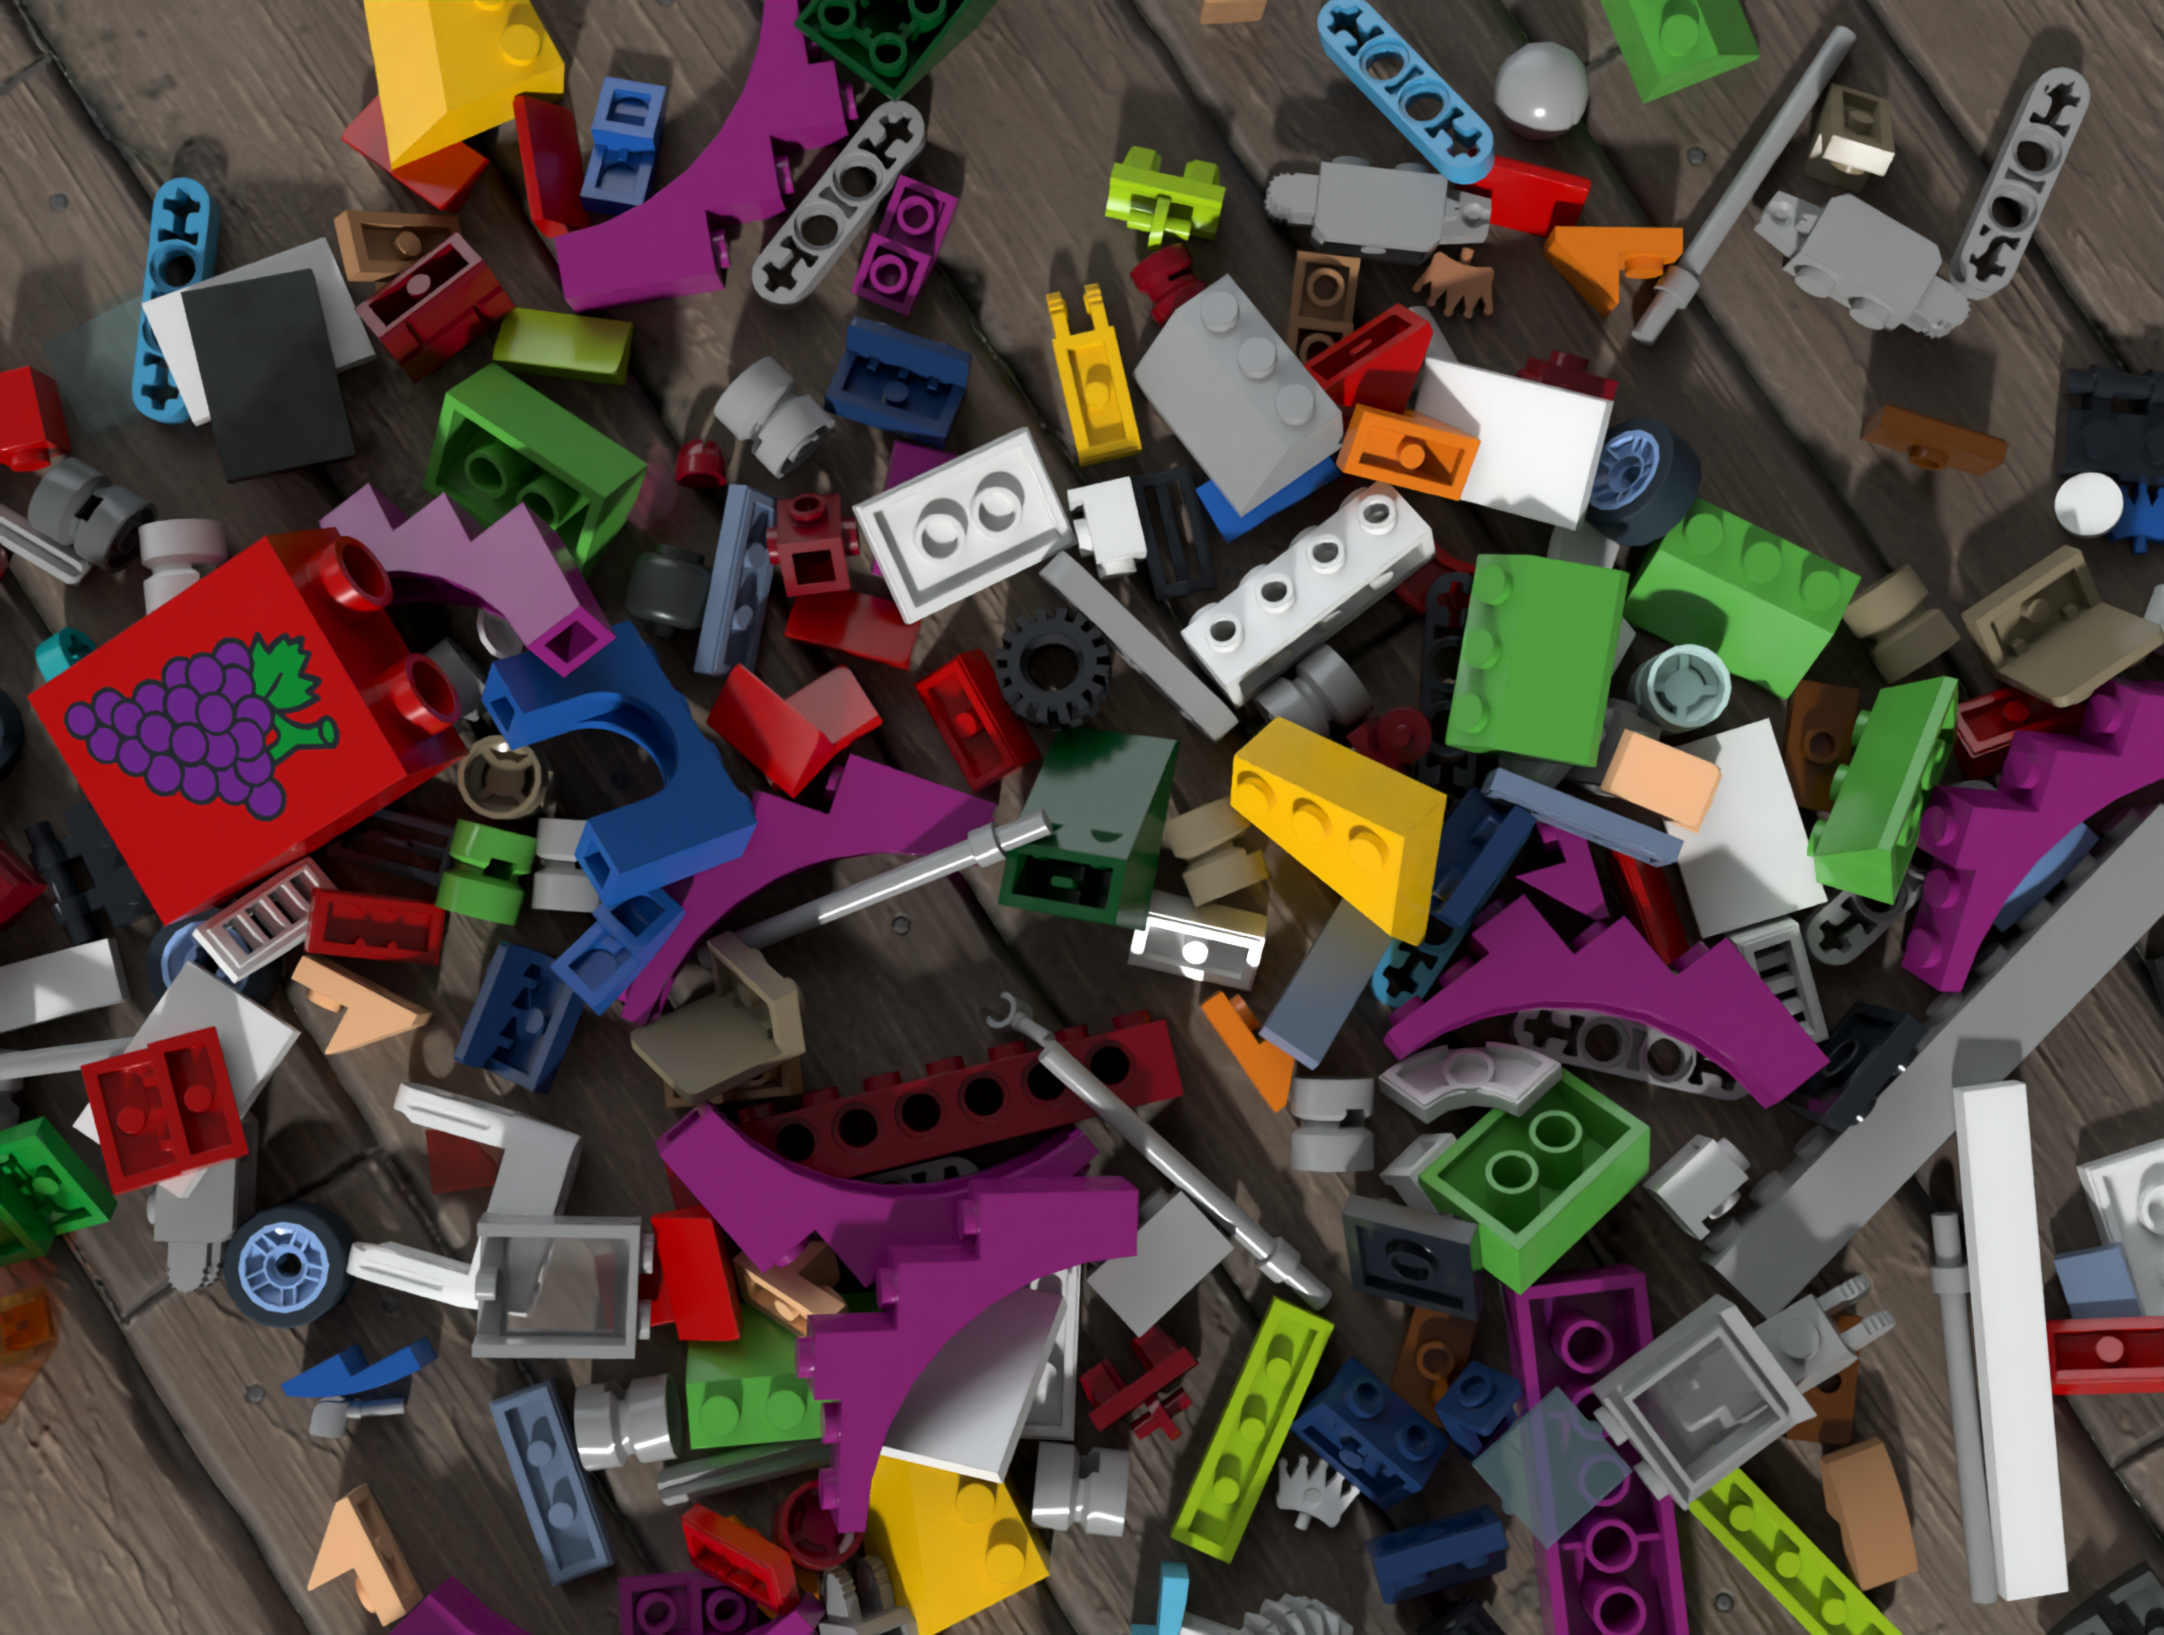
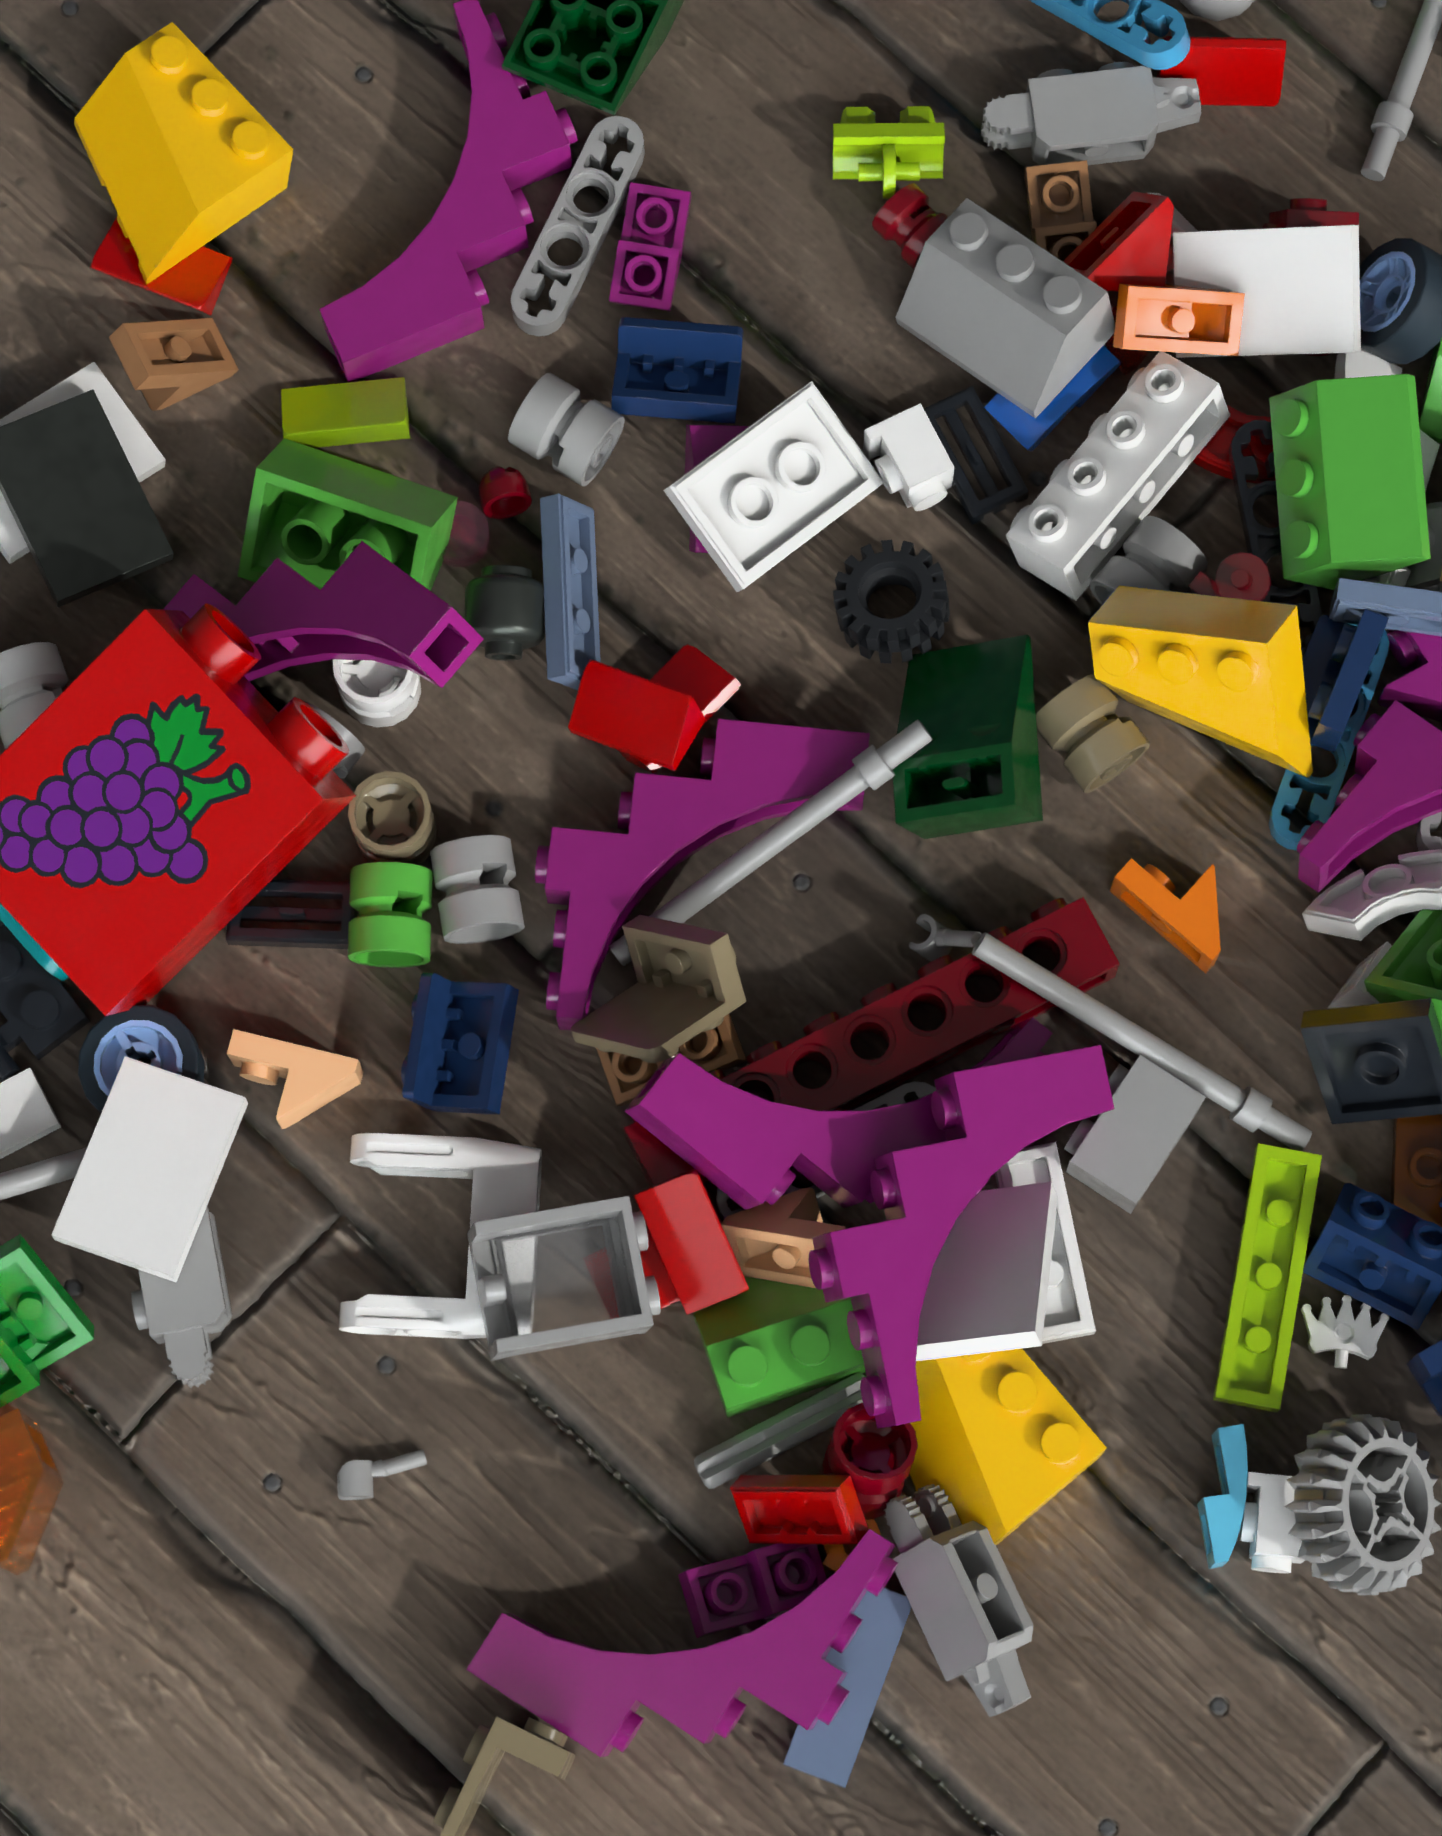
camera: 10 degrees left, 10 degrees down
(164, 1110) = (142, 1194): red slope -> none
(264, 1243) = (249, 1339): wheel -> none
(293, 891) = (198, 998): white slope -> none
(350, 1372) = (358, 1433): blue slope -> none
(362, 1541) = (412, 1592): light nougat slope -> none
(374, 926) = (293, 992): red plate -> none
(435, 307) = (218, 400): dark red brick -> none
(458, 1163) = (424, 1205): clear red tile -> none
(551, 166) = (295, 251): red slope -> none
(553, 1482) = (591, 1495): sand blue tile -> none
(618, 947) = (541, 943): blue slope -> none
(622, 689) = (585, 796): blue arch -> none
(625, 147) = (358, 217): blue slope -> none
(628, 1421) = (655, 1408): light grey wheel -> none
(813, 543) = (633, 535): dark red brick -> none
(854, 627) = (686, 609): red slope -> none
(976, 720) = (826, 670): red slope -> none
(1080, 1489) = (1115, 1369): light grey wheel -> none
(1093, 382) = (861, 330): yellow hinge -> none
(1116, 1399) = (1167, 1237): dark red hips -> none
(1139, 647) = (970, 564): light grey beam -> none
(1200, 941) = (1096, 829): white slope -> none
(1326, 985) = (1231, 826): sand blue tile -> none
(1332, 1123) = (1269, 962): light grey wheel -> none
(1458, 282) = (1184, 163): nougat piece -> none
(1594, 255) = (1308, 107): orange slope -> none

